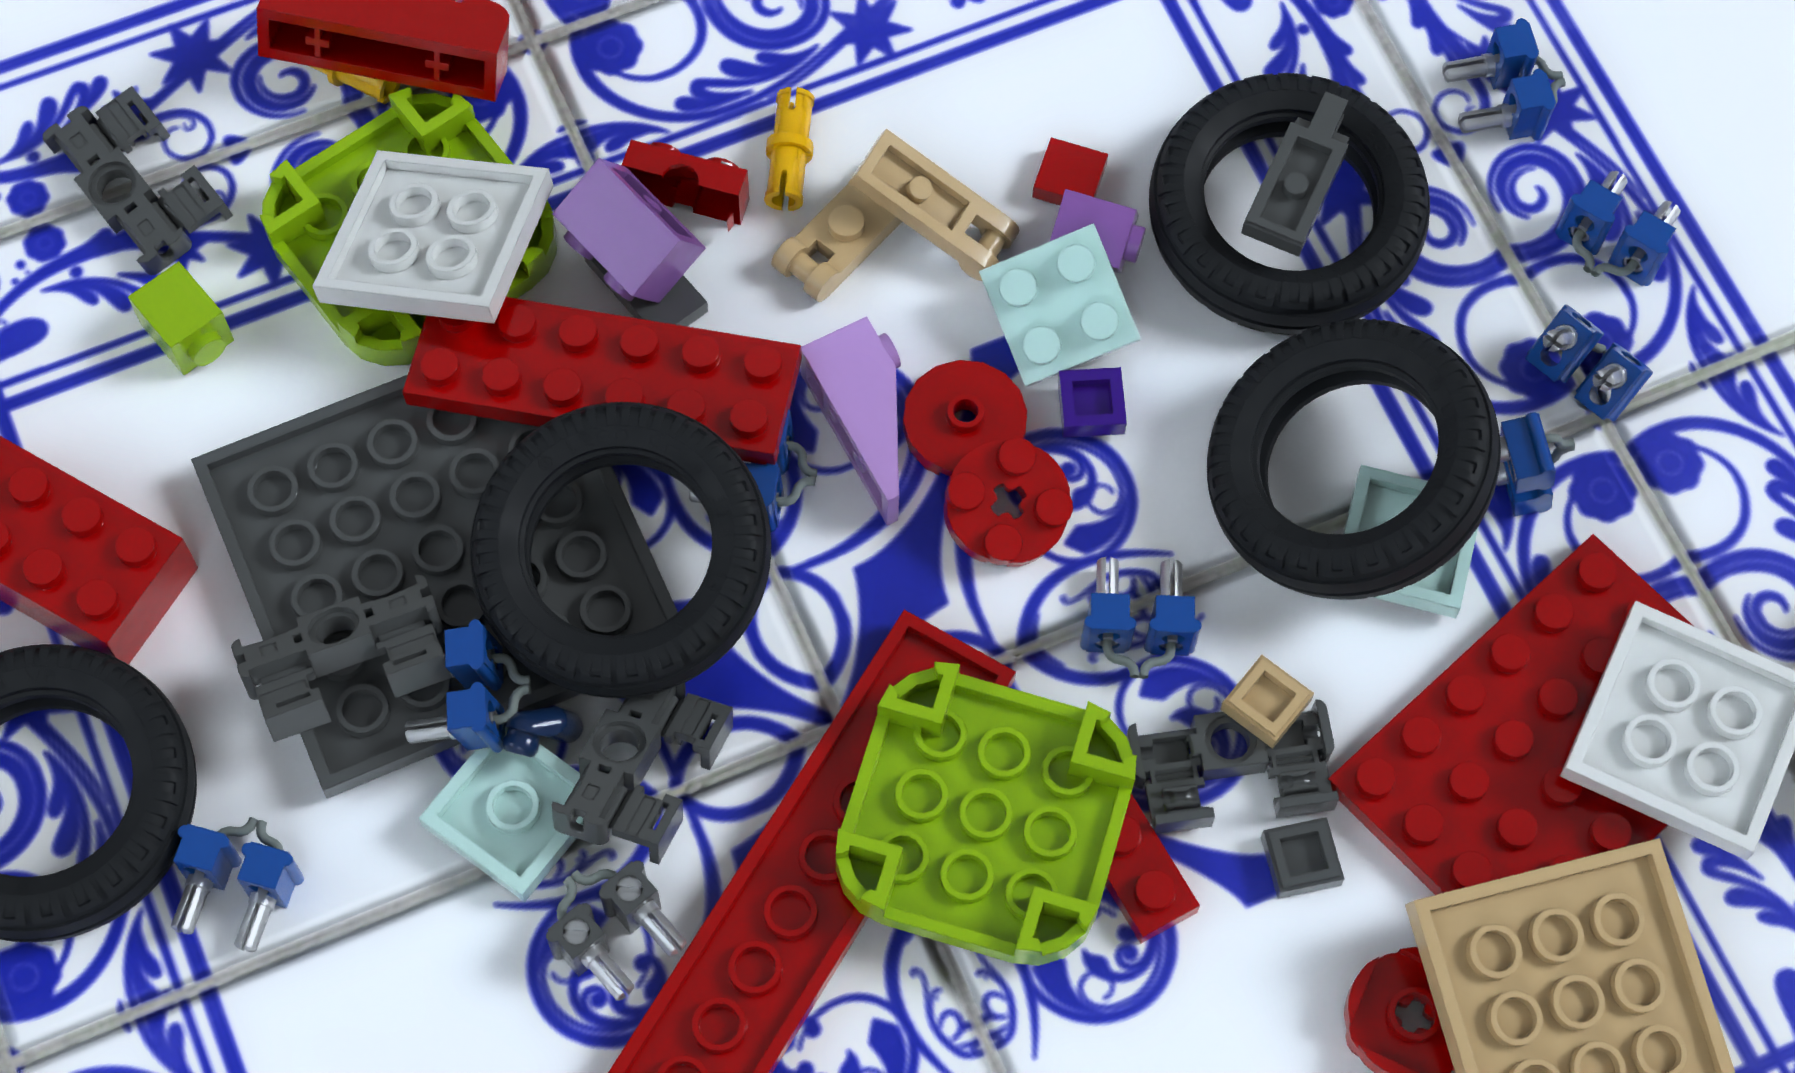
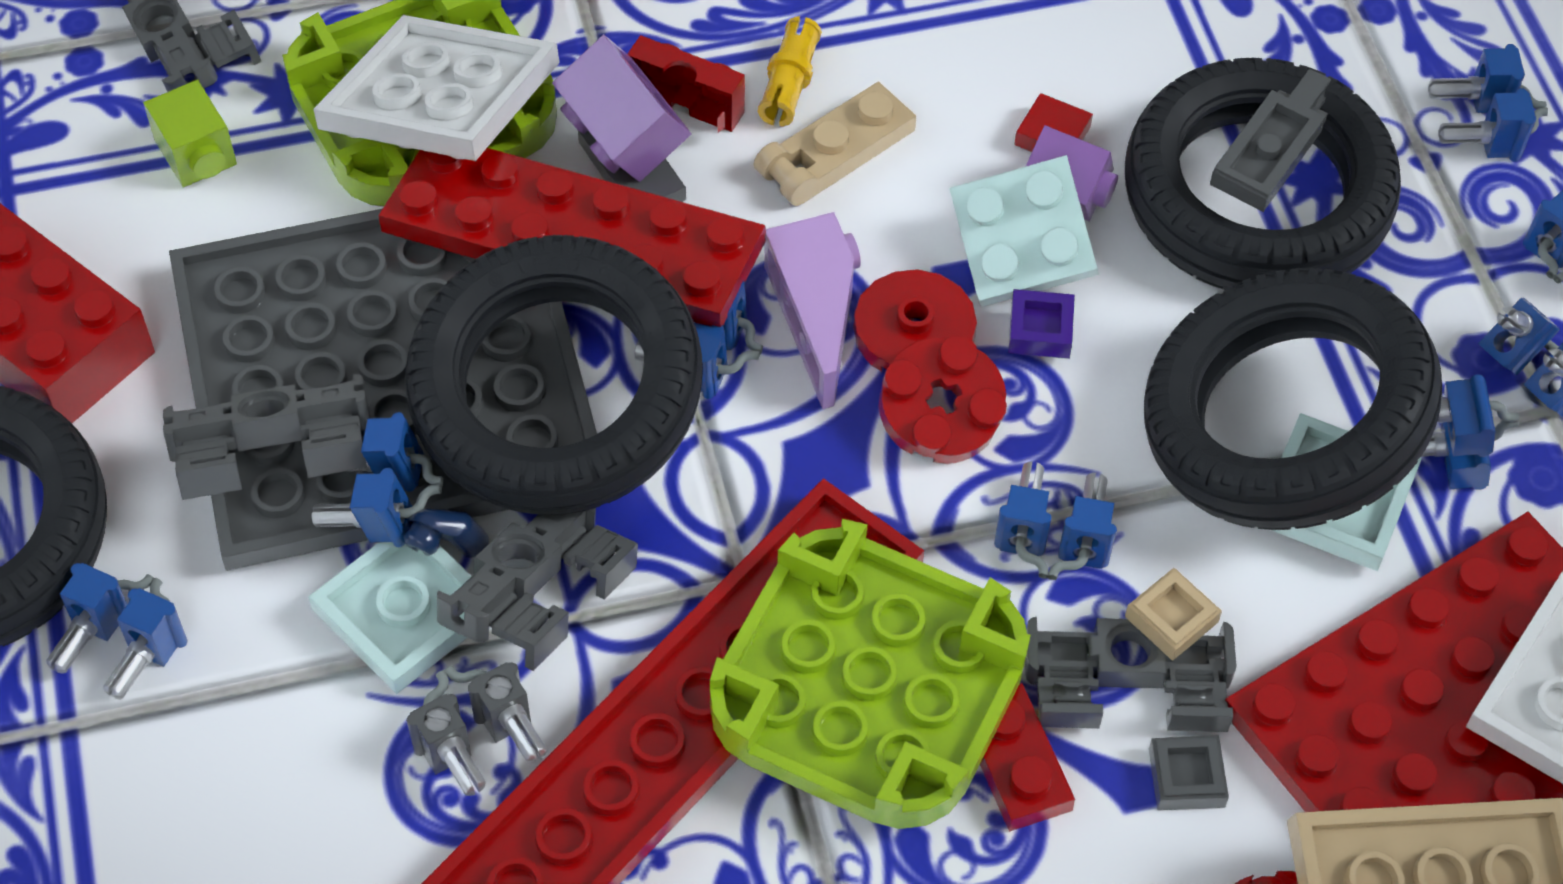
camera: 10 degrees right, 10 degrees down
(934, 203) = (916, 127): tan plate -> none

